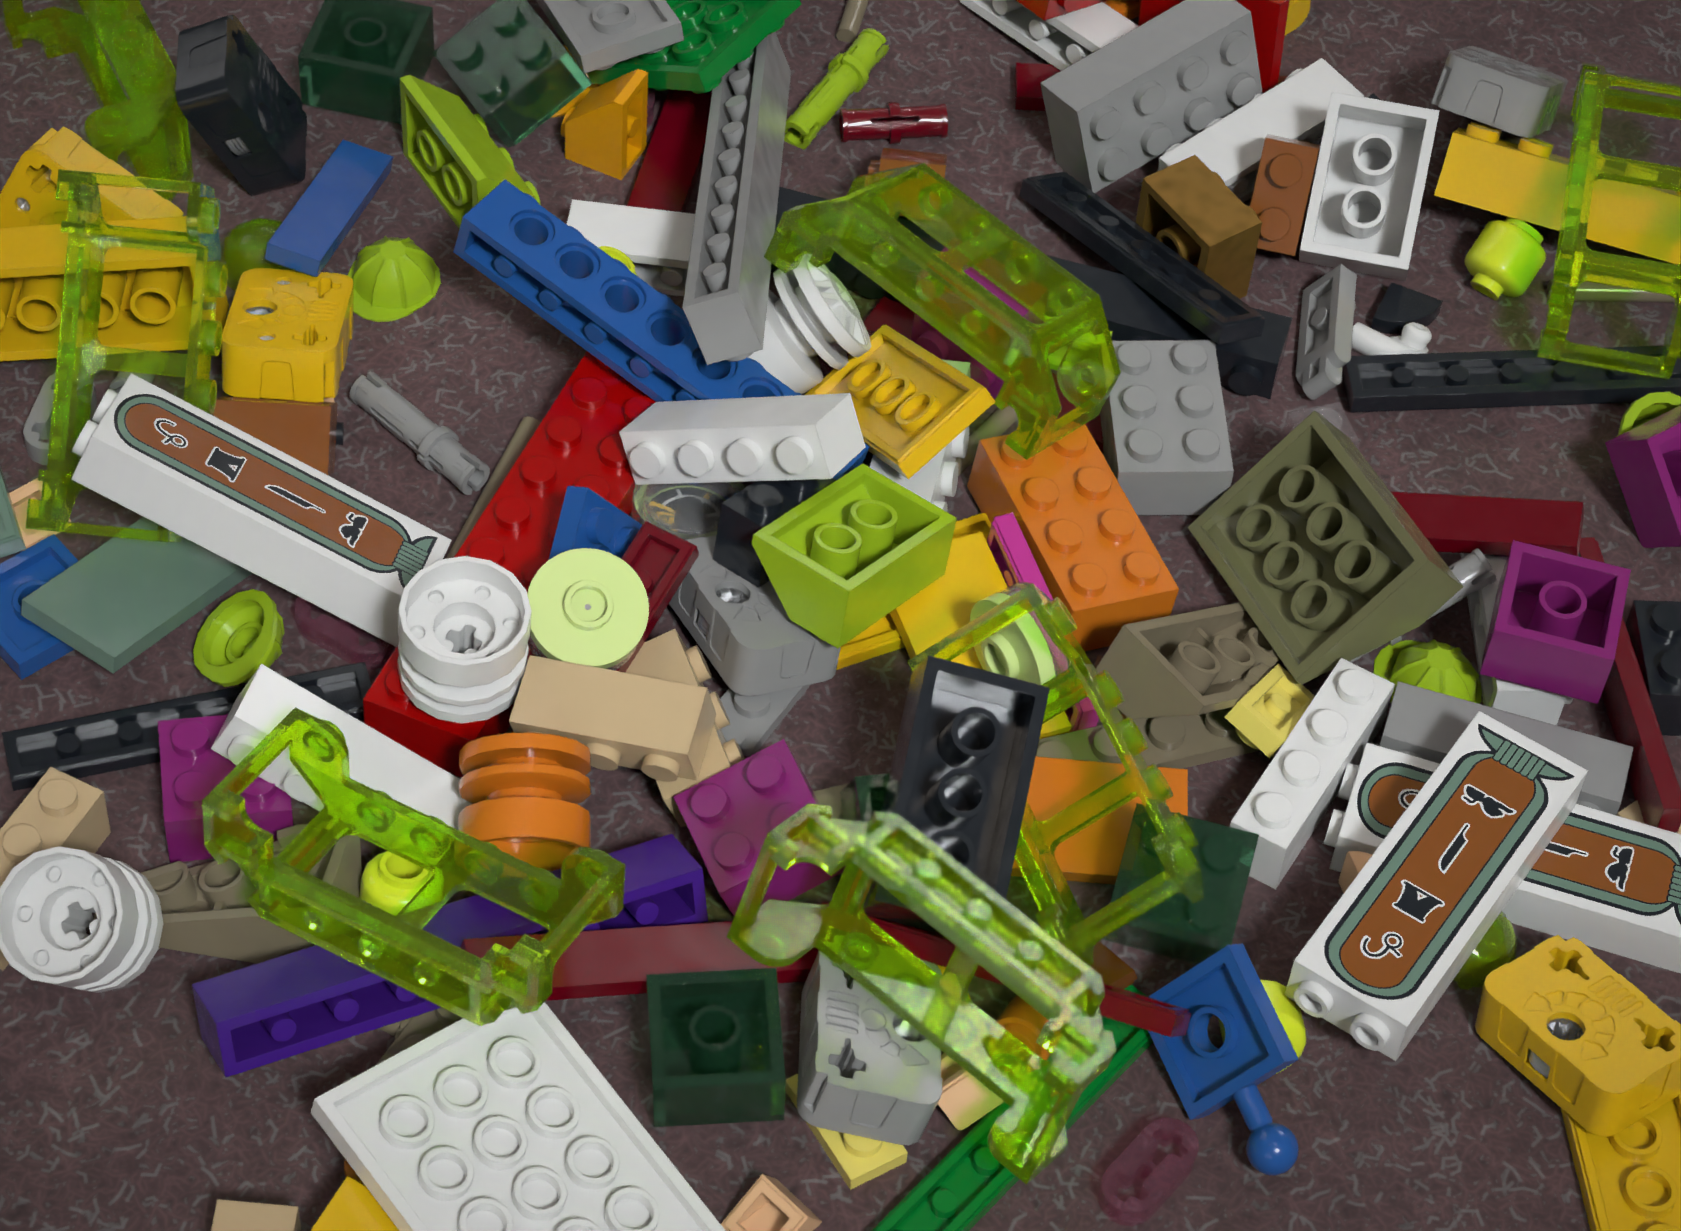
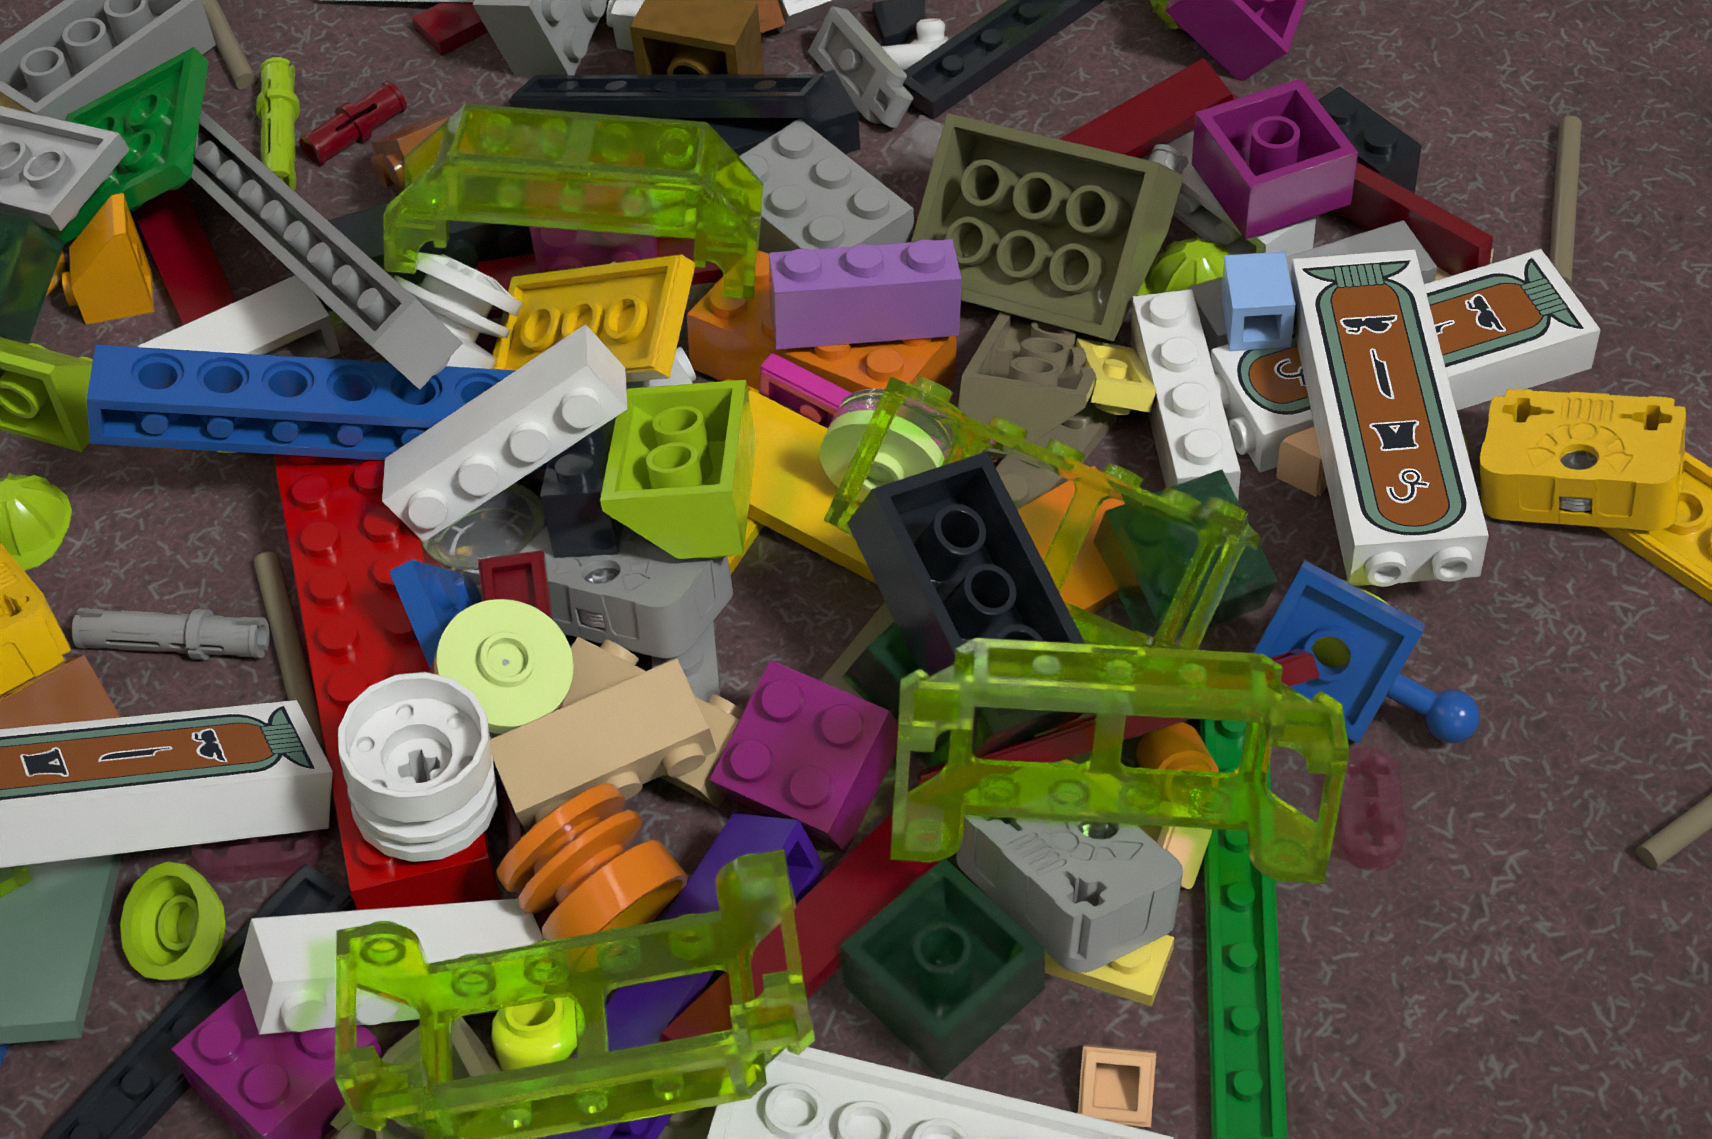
camera: 30 degrees left, 0 degrees up
(1112, 512) = (864, 293): none -> medium lavender brick
(1427, 725) = (1257, 301): none -> light blue brick

